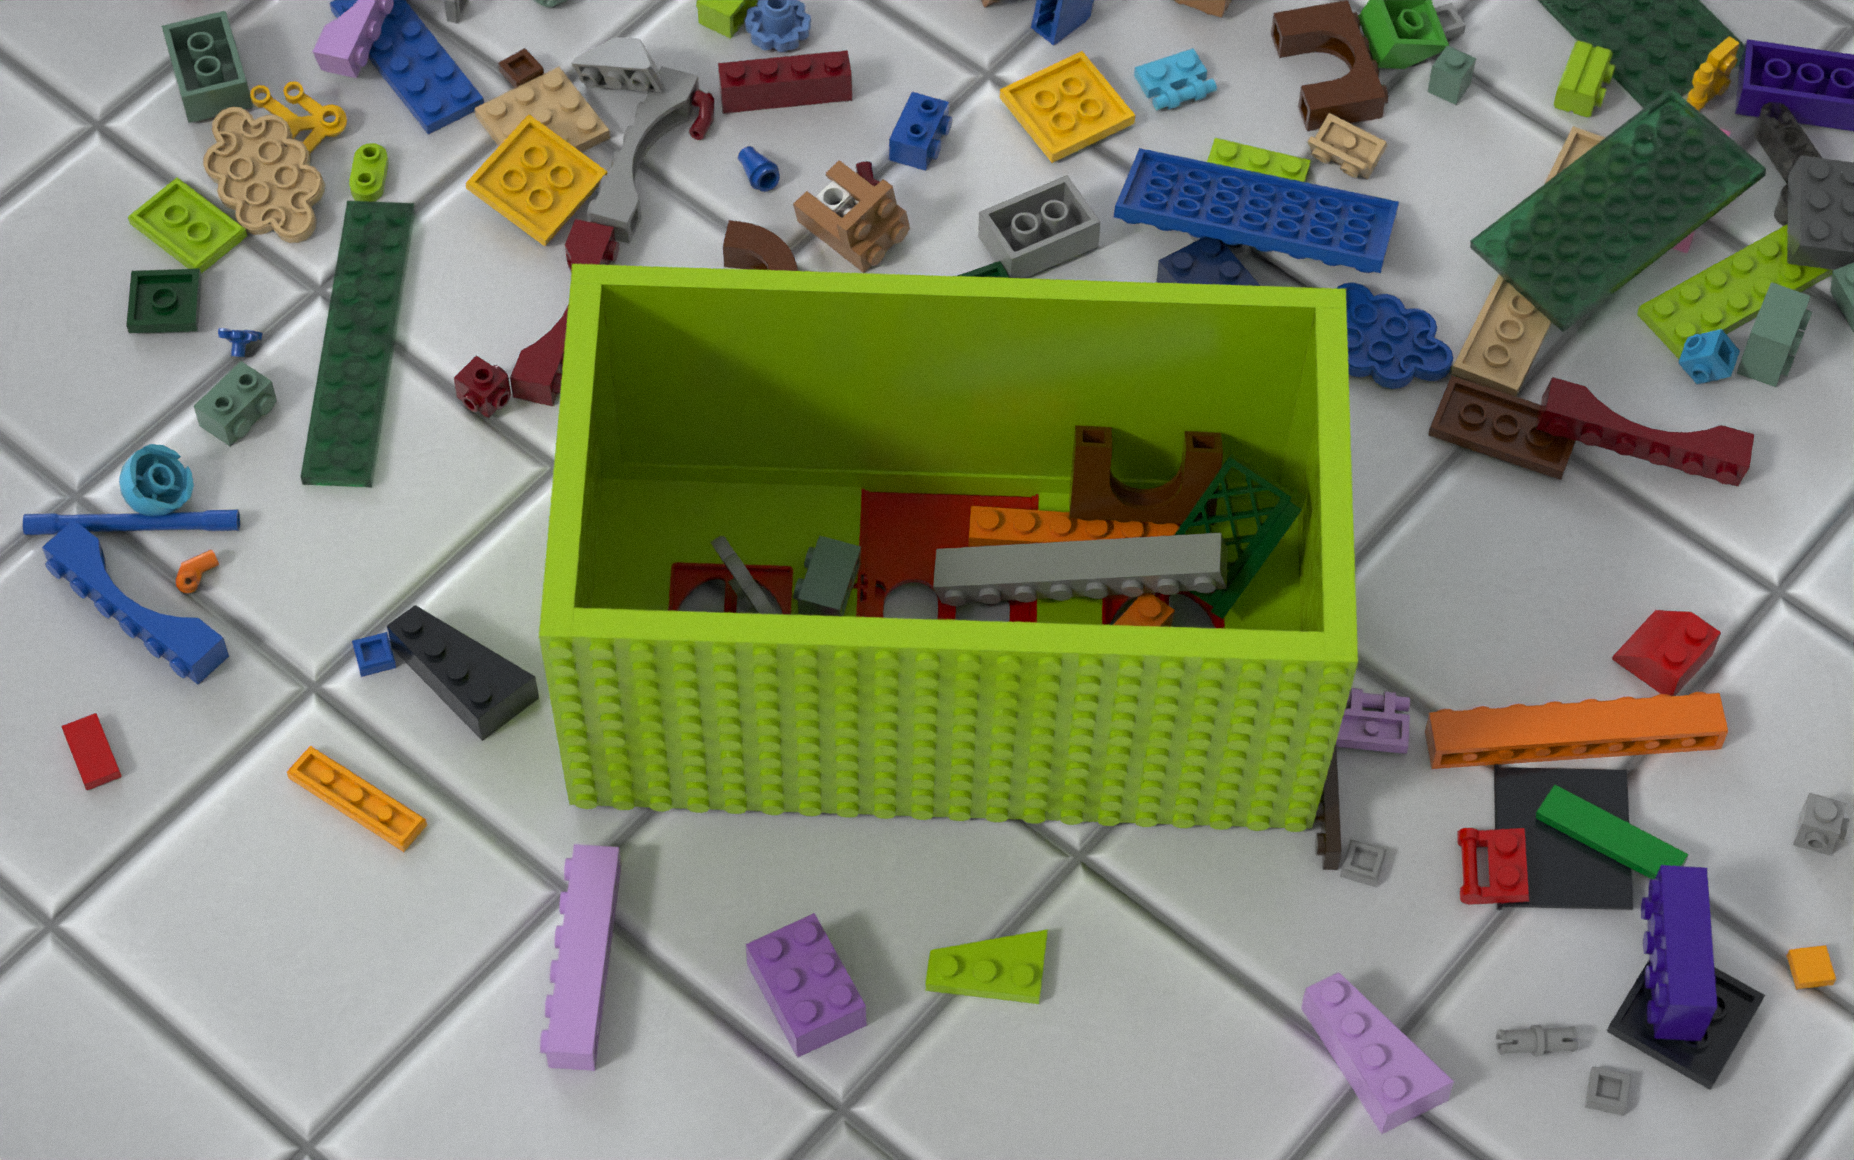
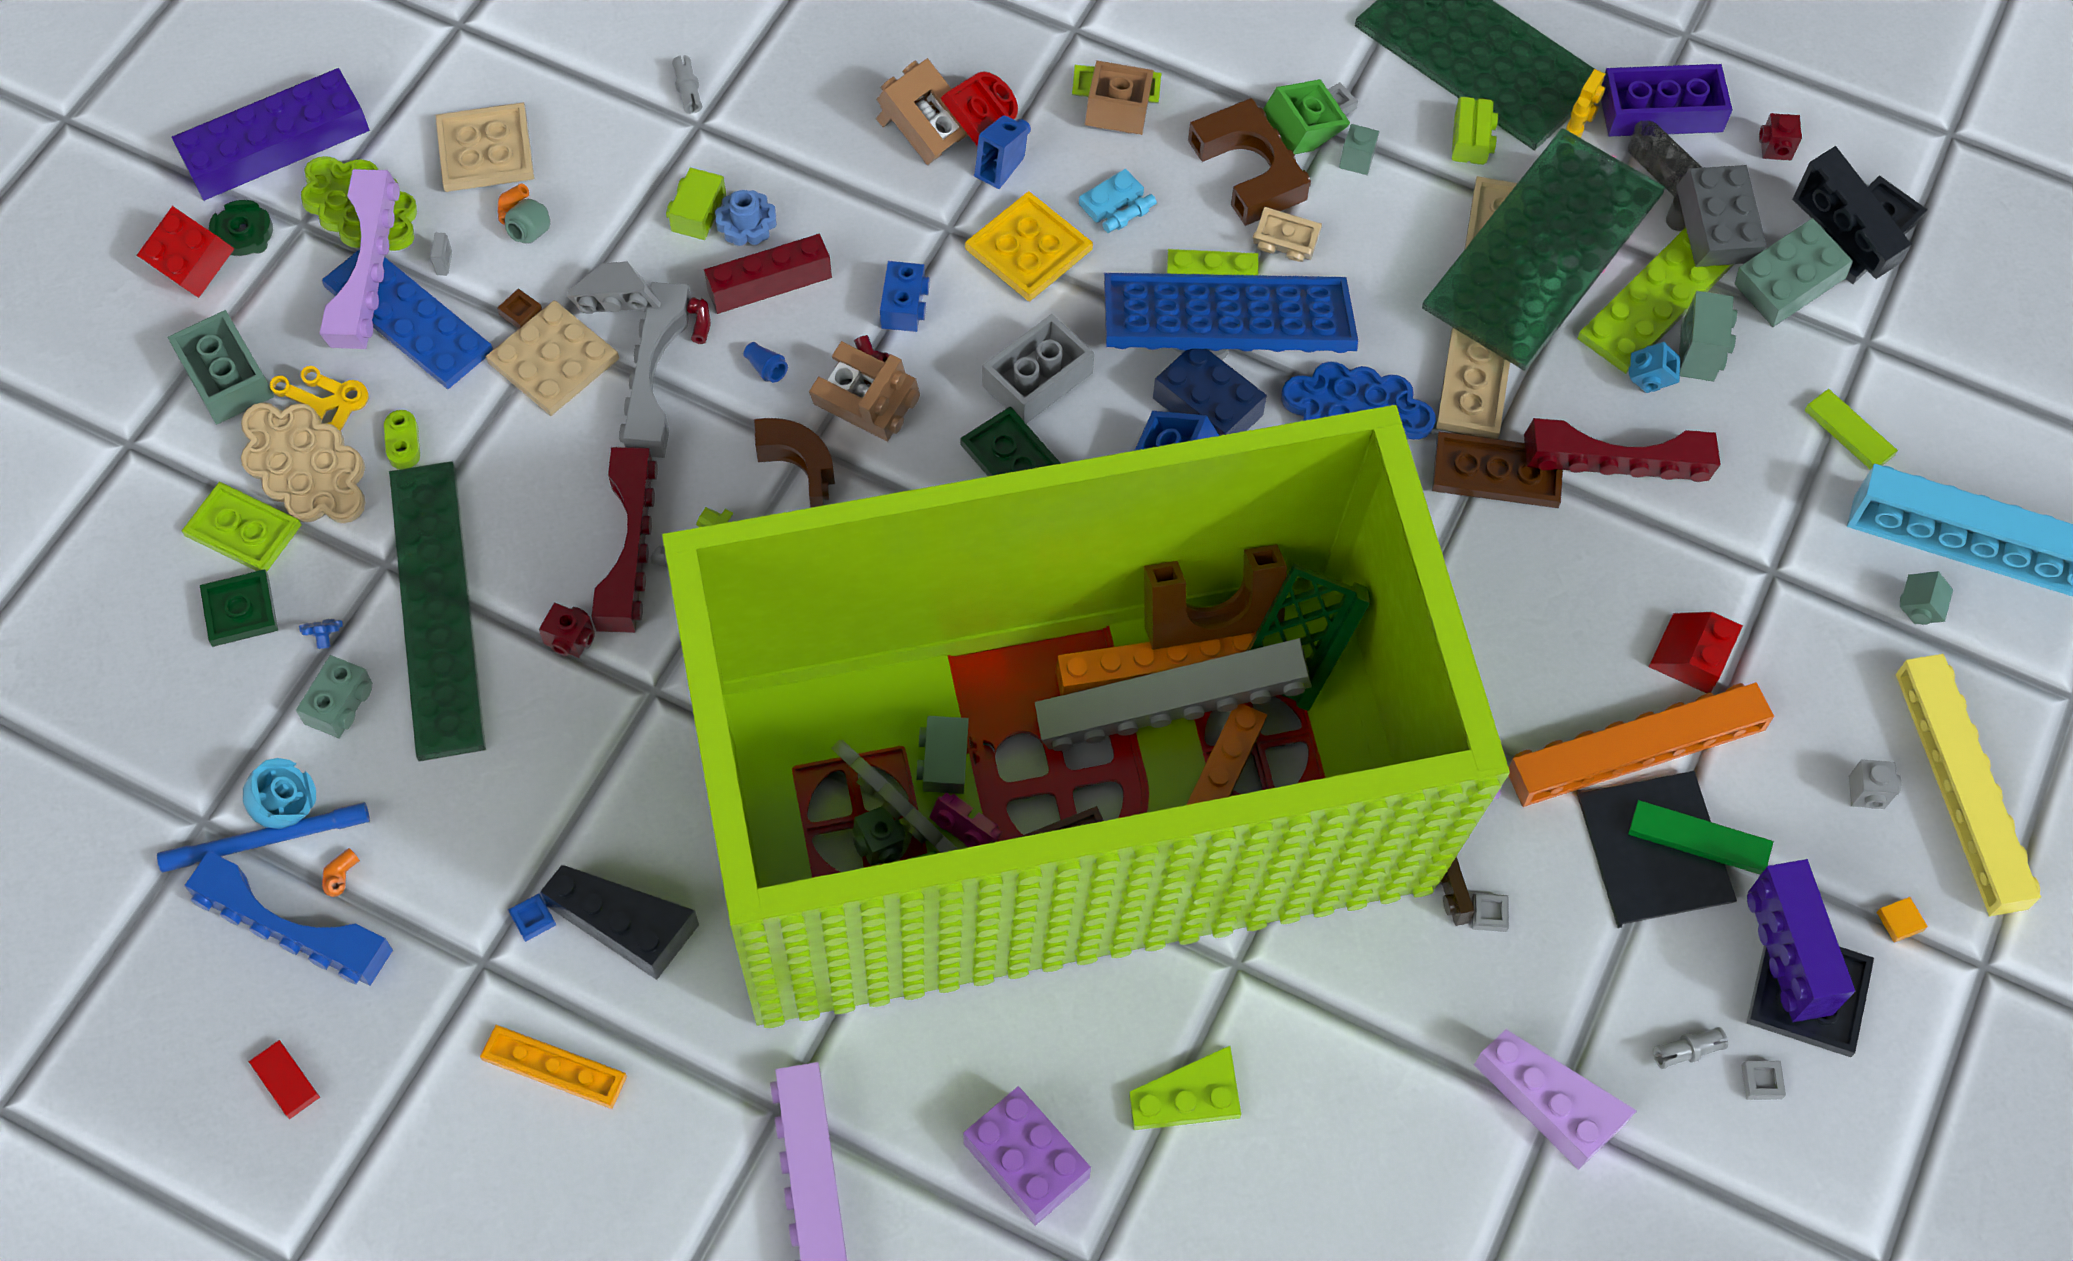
camera: 15 degrees left, 5 degrees up
(536, 180) = (563, 415): yellow plate -> none
(1506, 866) = (1616, 886): red plate -> none

